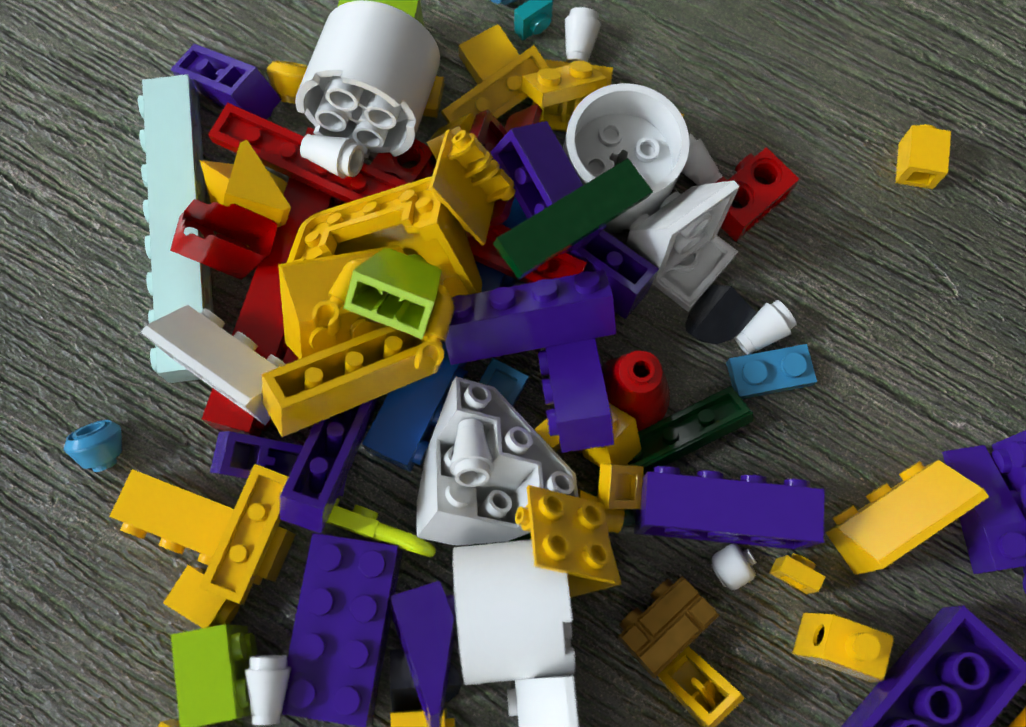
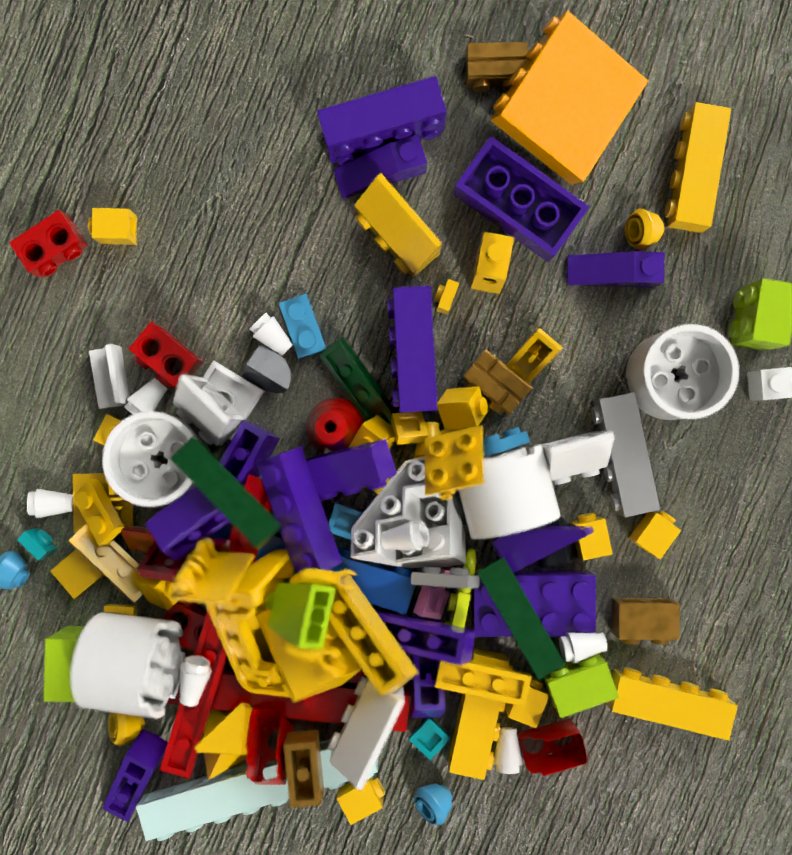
camera: 90 degrees left, 15 degrees up
(112, 638) = (561, 756): none -> red piece
(125, 349) = (361, 803): none -> yellow brick
(139, 559) = (507, 752): none -> white cone
(185, 273) = (304, 768): none -> pearl gold brick
(185, 454) = (429, 737): none -> teal plate
(325, 601) = (520, 617): none -> dark green tile
(376, 489) = (432, 600): none -> bright pink plate
(399, 518) = (456, 579): none -> light grey plate
(583, 634) = (512, 439): none -> dark azure plate
(639, 568) = (462, 407): none -> yellow brick
(731, 126) = (109, 376): none -> white panel
(734, 566) = (447, 339): white piece -> none
(910, 75) = (46, 236): none -> red brick

